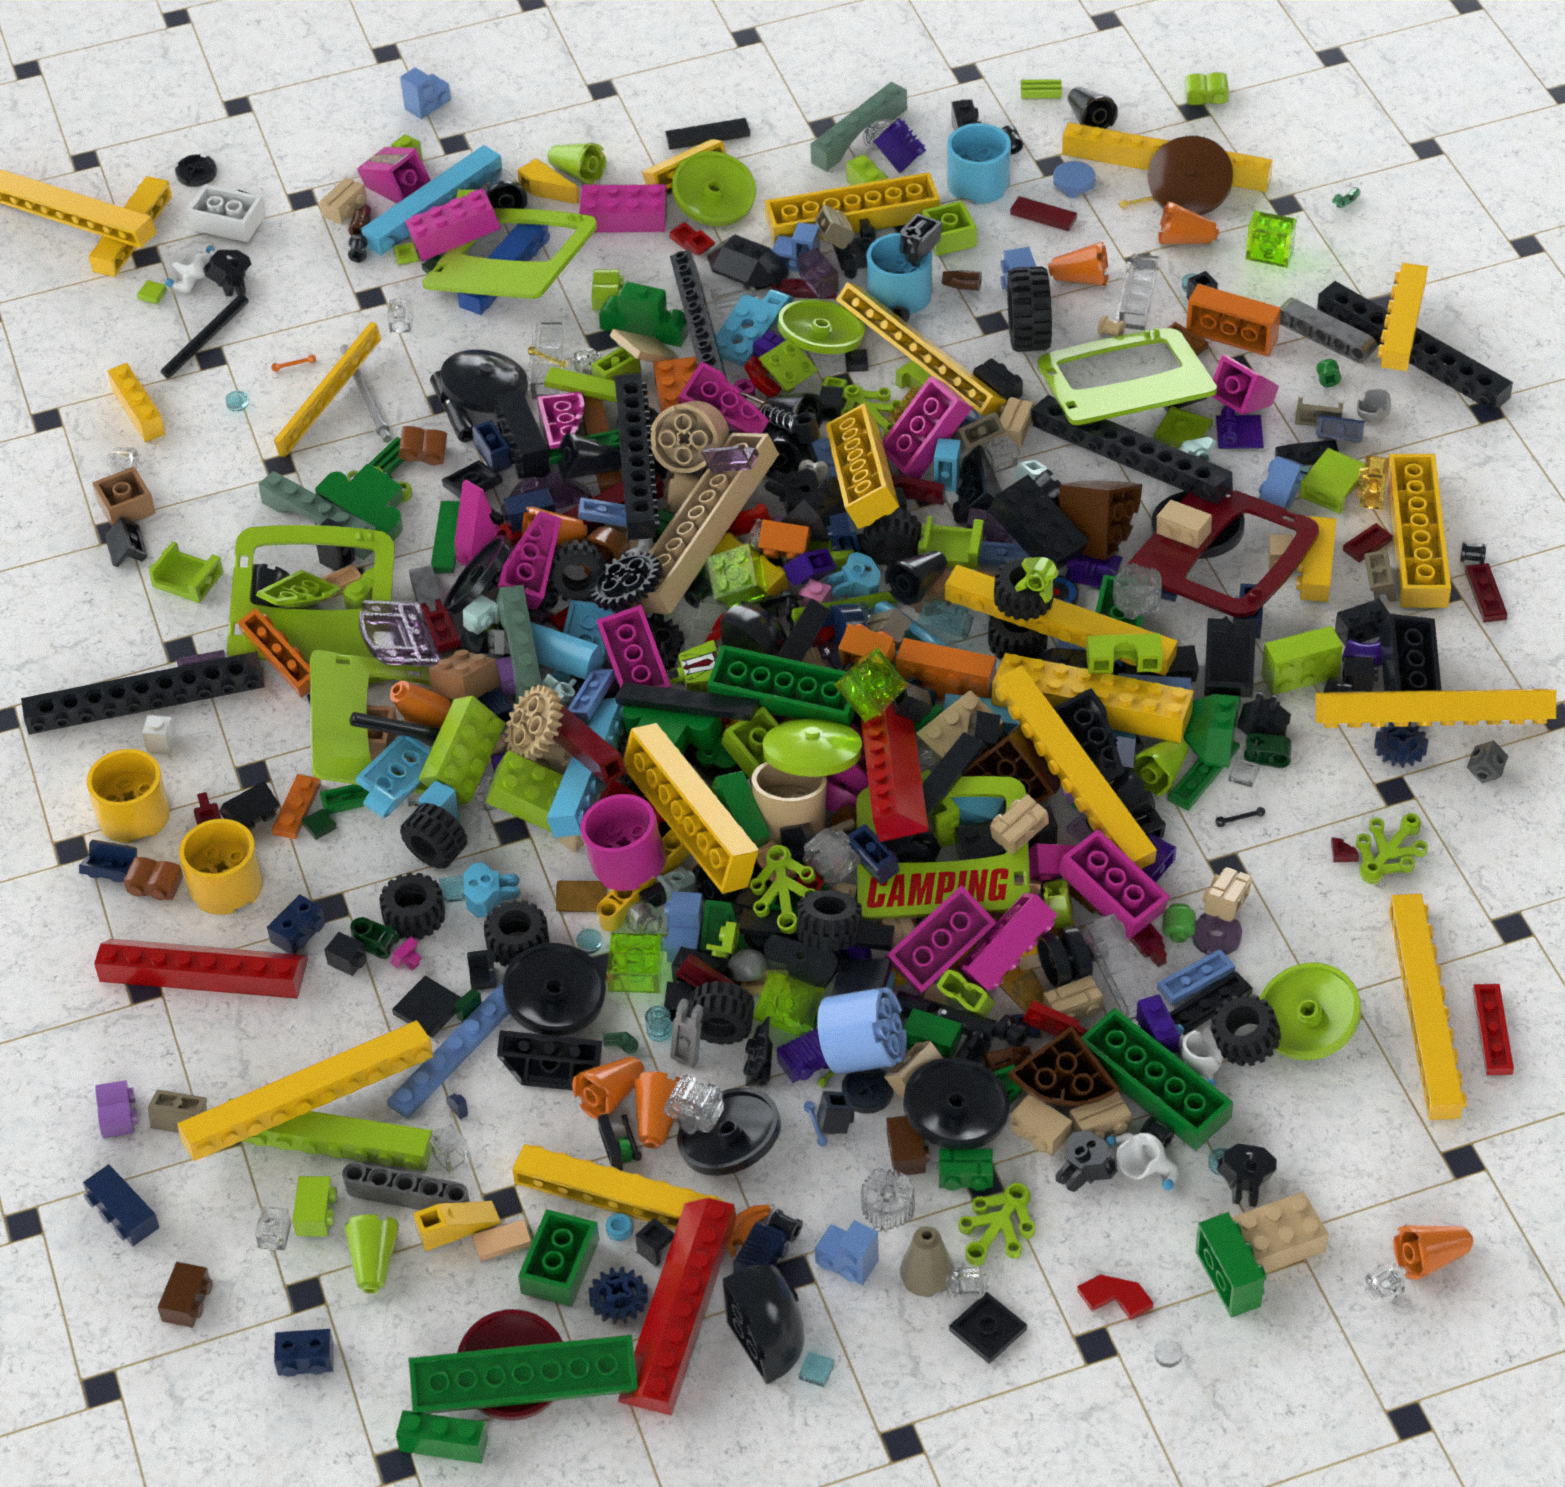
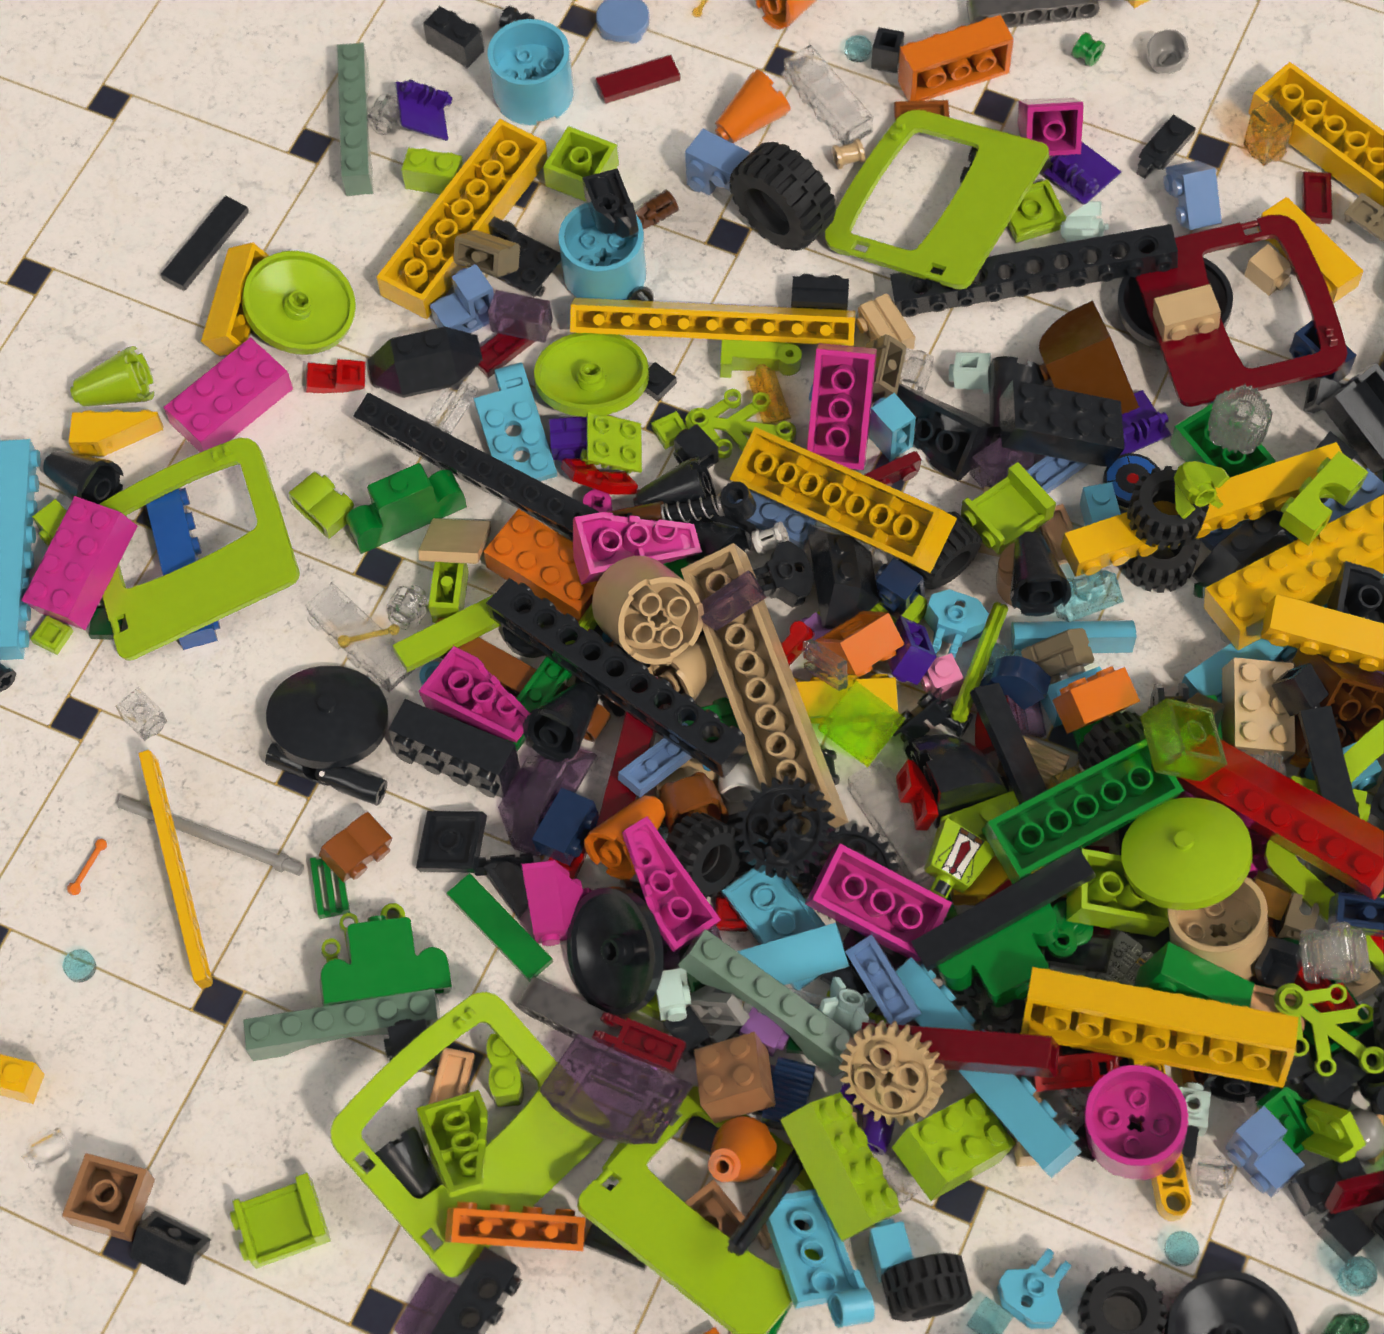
camera: 45 degrees left, 15 degrees up
(492, 446) = (430, 785): dark blue brick -> none
(579, 895) = (1120, 1209): pearl gold slope -> none
(635, 962) = (1260, 1232): clear neon green brick -> none
(946, 668) = (1167, 647): orange brick -> none
(1309, 414) = (1128, 97): dark tan hinge -> none
(1331, 480) = (1229, 151): lime panel -> none
(1340, 428) = (1172, 99): dark blue brick -> none

